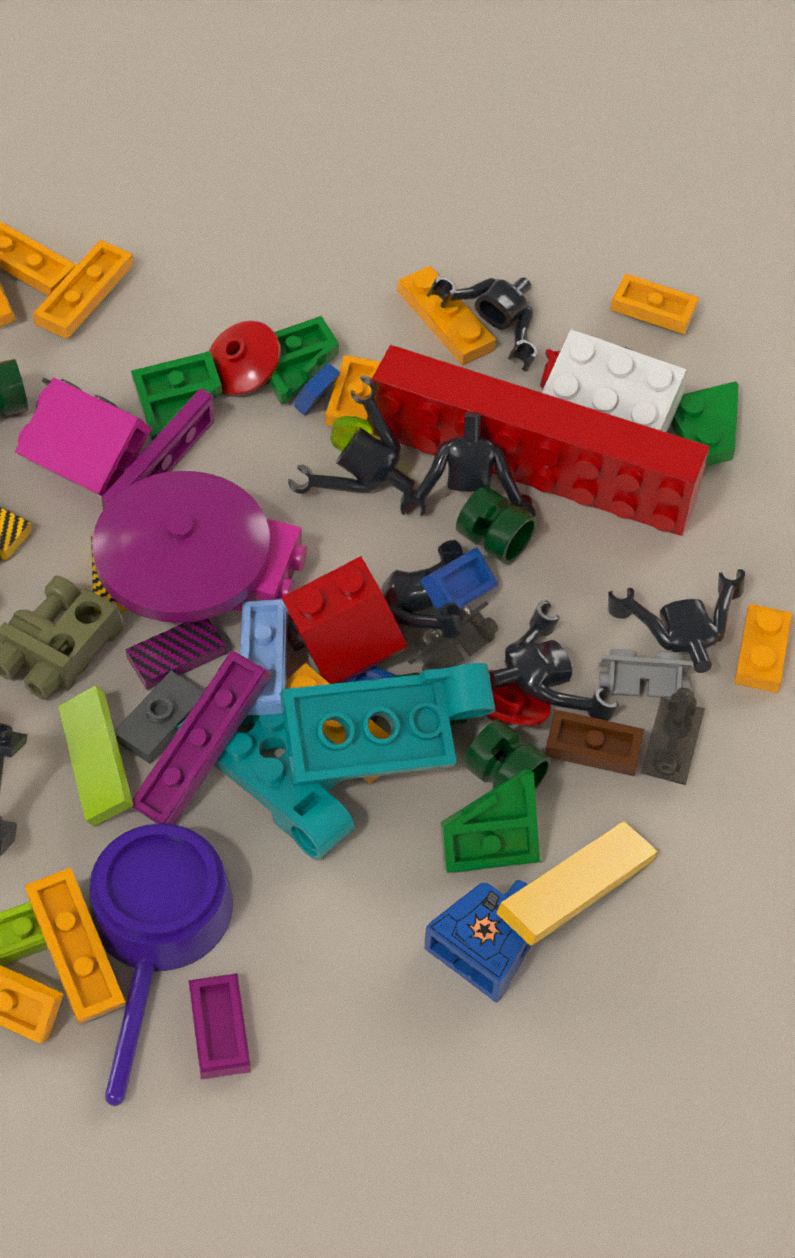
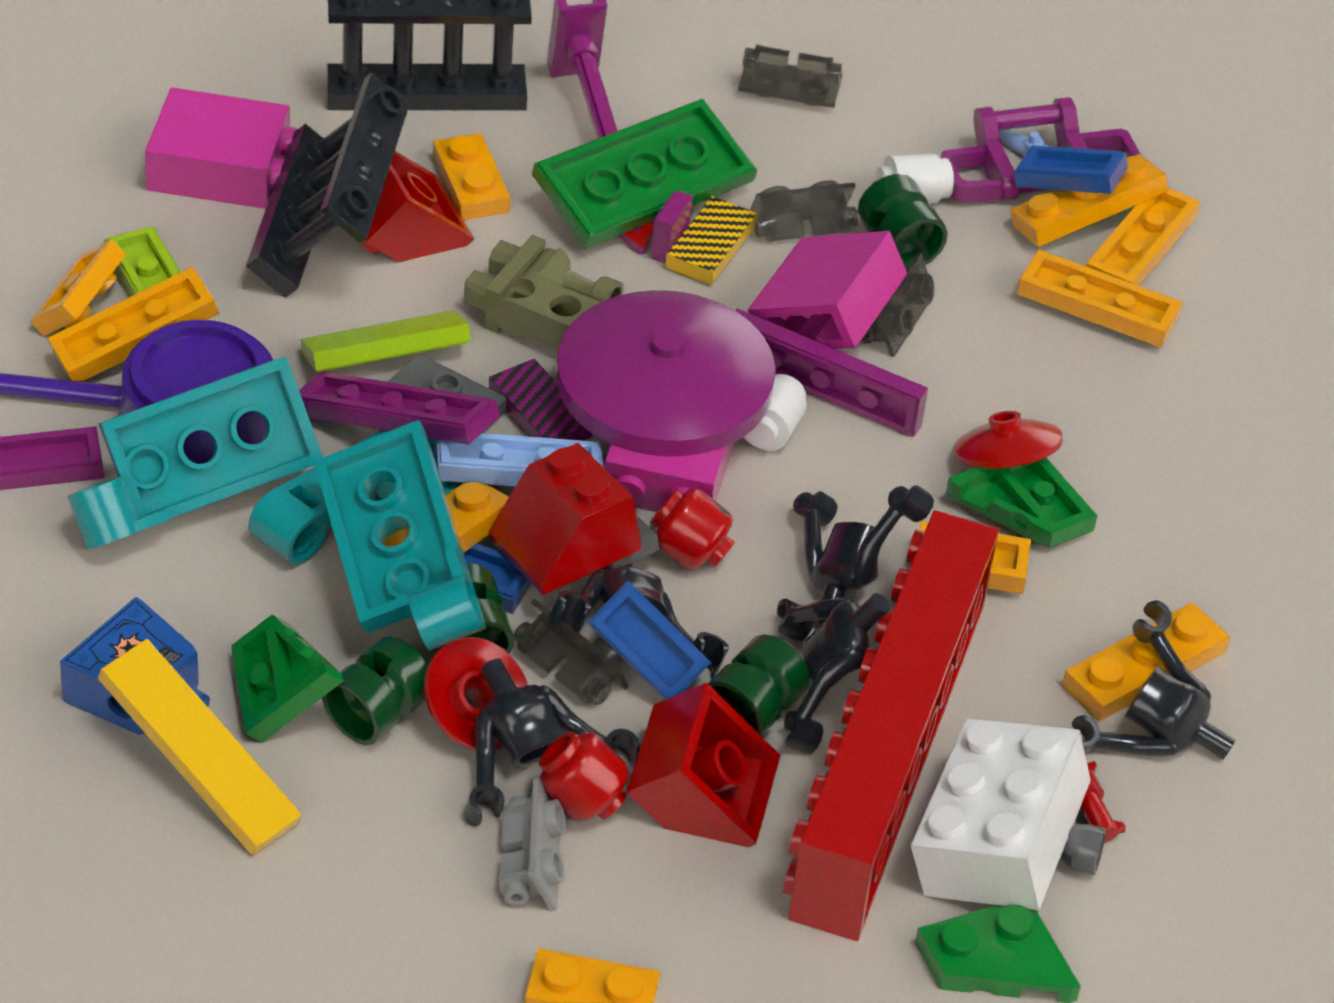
camera: 85 degrees right, 10 degrees down
(170, 385) = (957, 389): green wing -> none
(266, 912) = (160, 480): none -> teal hinge
(316, 388) = (964, 505): blue tile -> none
(330, 548) = (693, 529): none -> red head
(344, 429) = (894, 551): clear neon green tile -> none
(568, 567) = (704, 769): none -> red slope
(588, 632) = (584, 776): none -> red head
(594, 742) = (418, 789): reddish brown plate -> none
(654, 303) = (1218, 894): light orange plate -> none
(674, 737) = (437, 879): clear smoke hinge -> none
(685, 622) = (618, 894): black piece -> none

